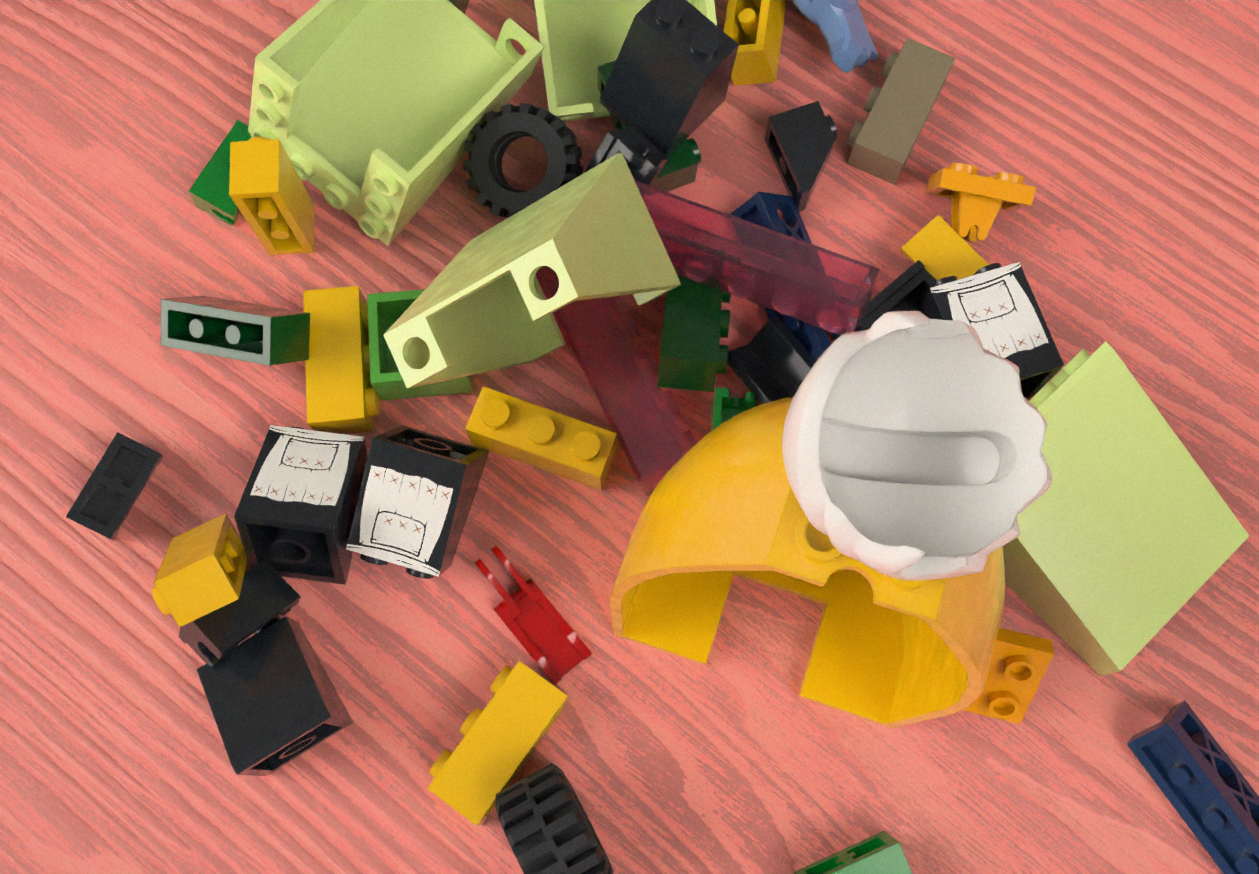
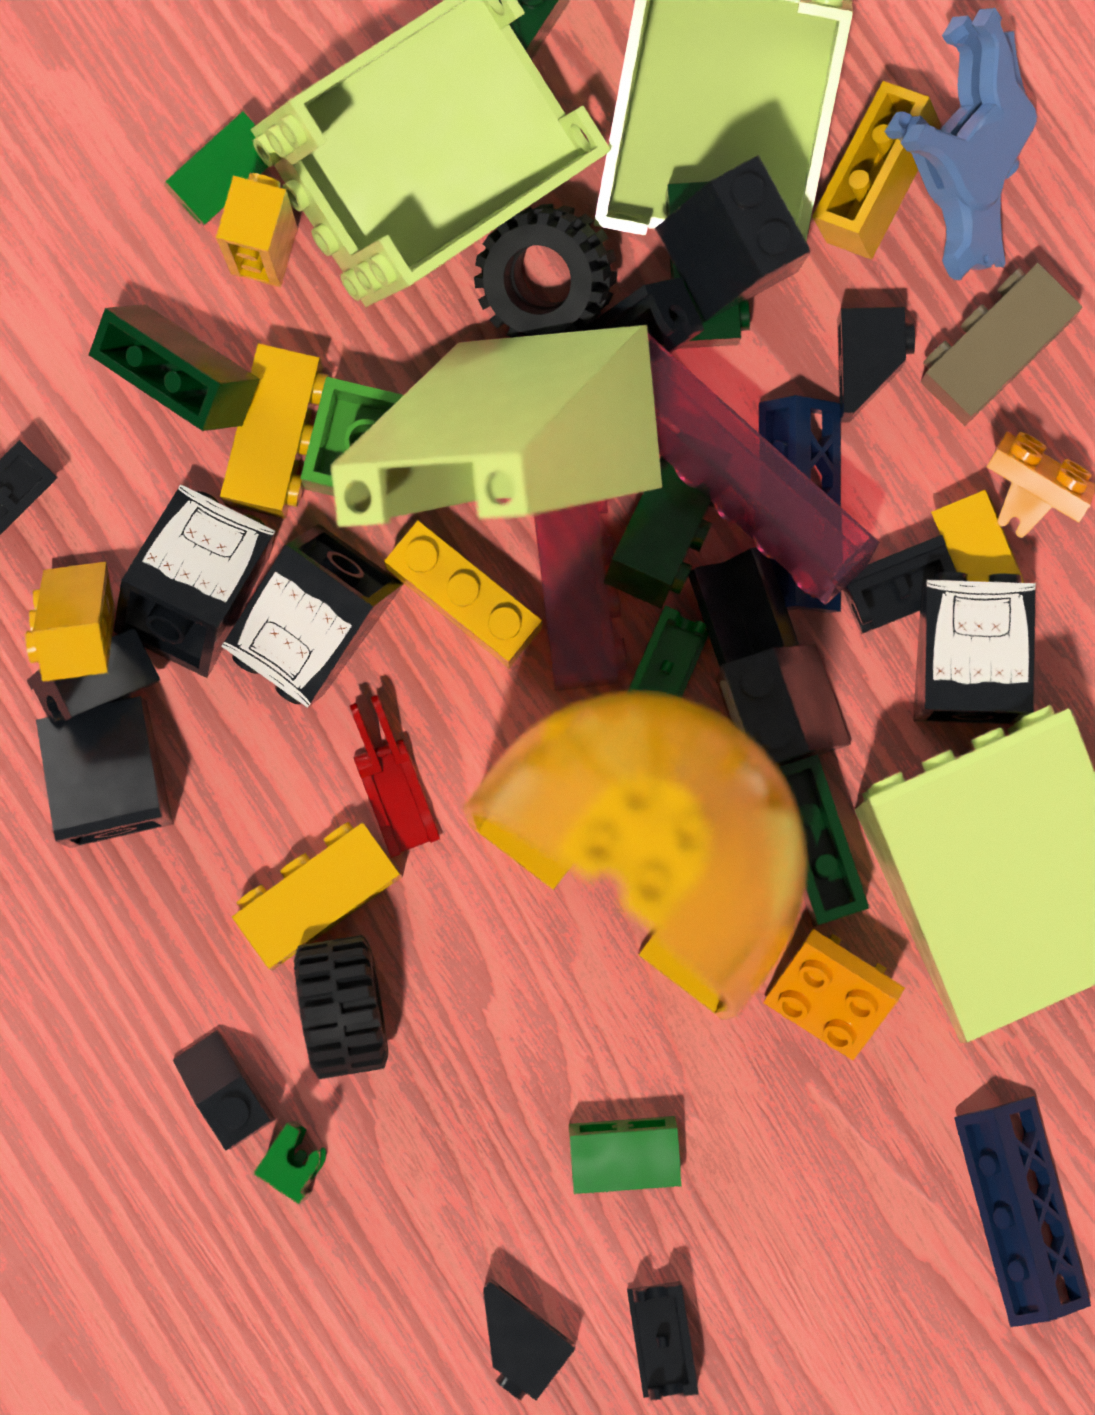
camera: 20 degrees right, 10 degrees up
(914, 447) = (666, 815): white piece -> none

